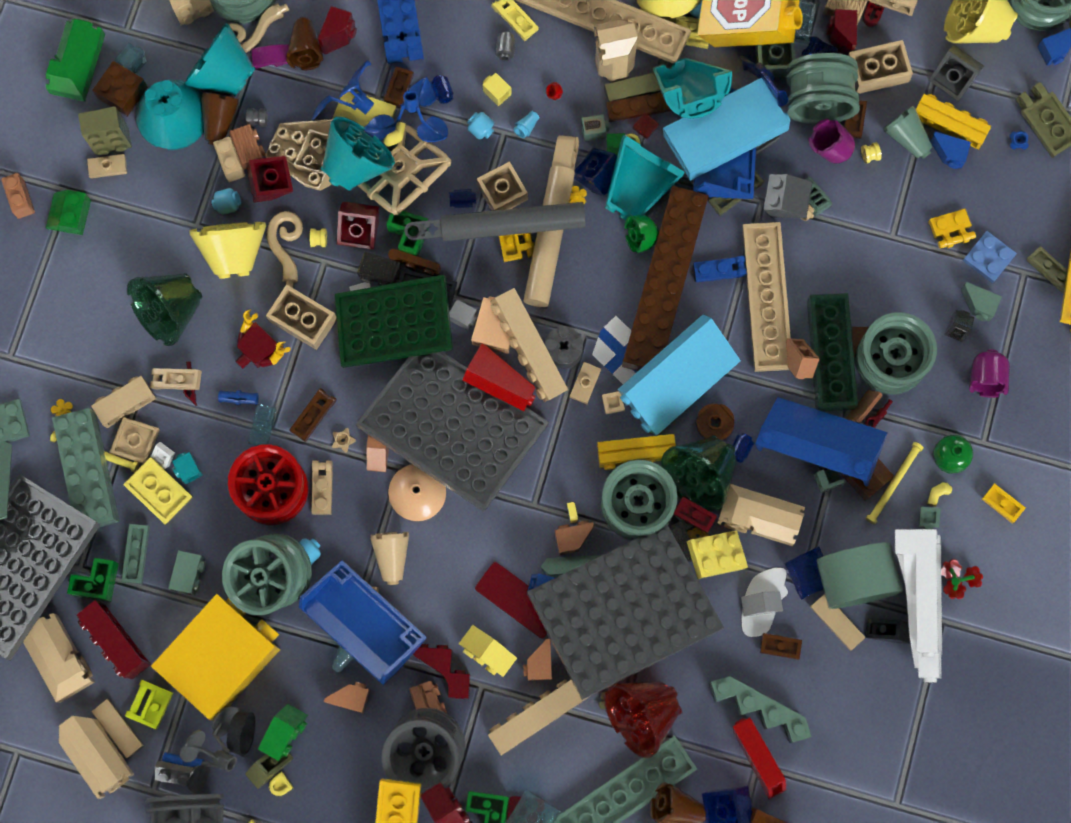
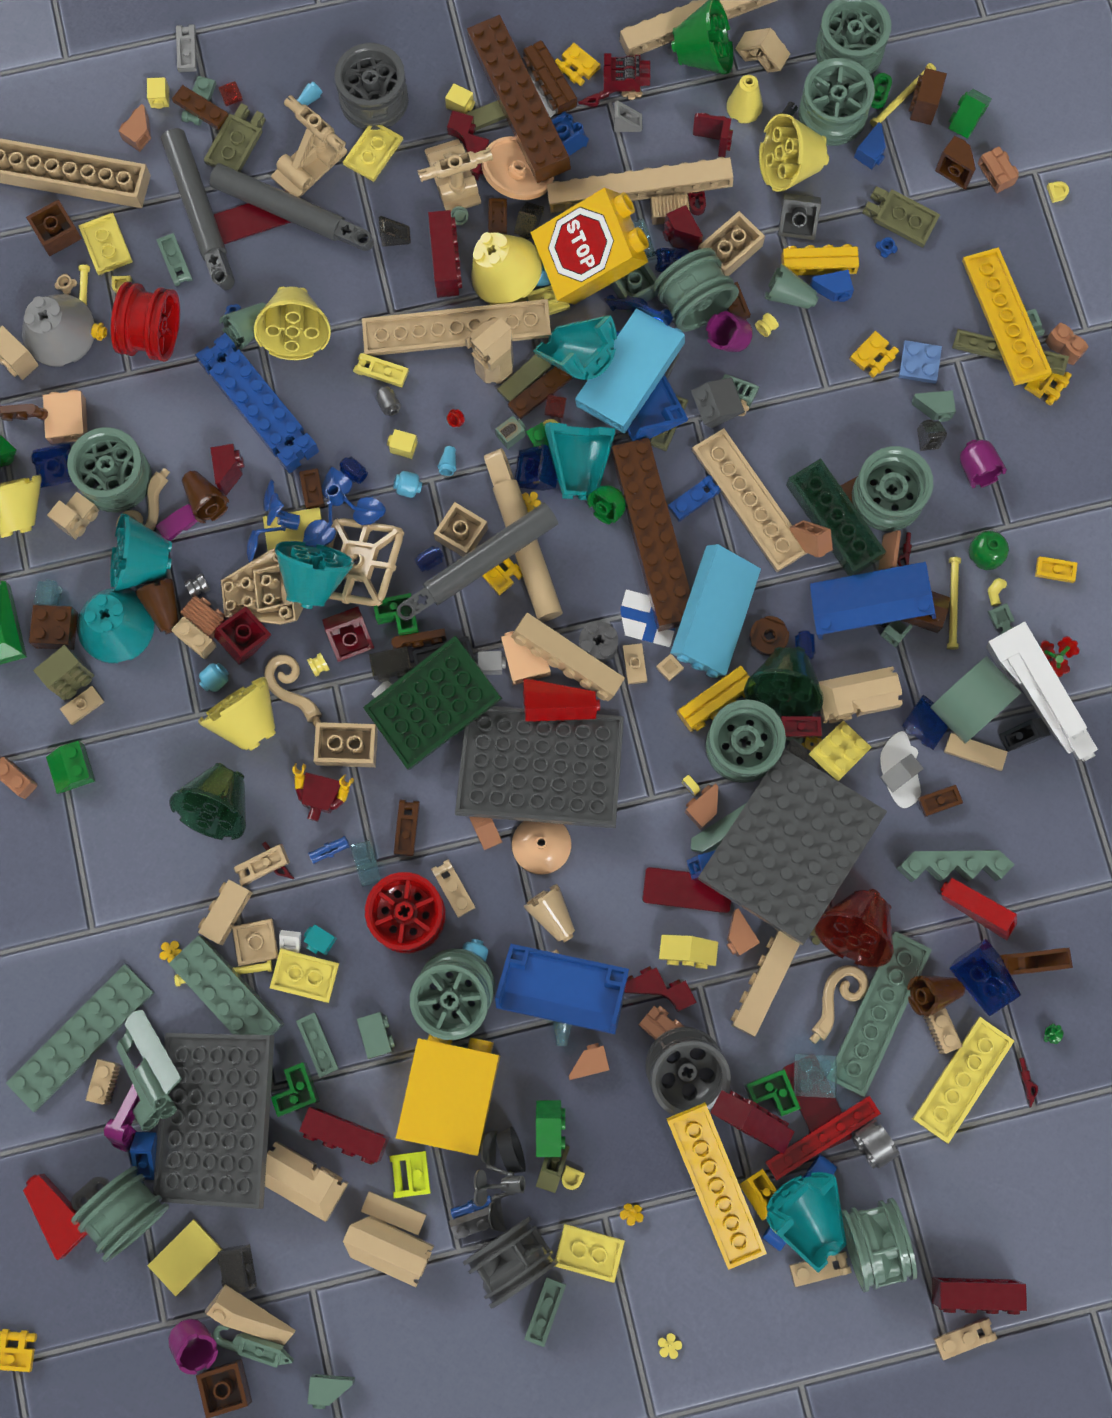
camera: 30 degrees left, 0 degrees up
(343, 435) = (446, 830): tan plate -> none
(395, 136) = (337, 534): light yellow arm -> none
(569, 779) = (825, 1024): none -> tan plant

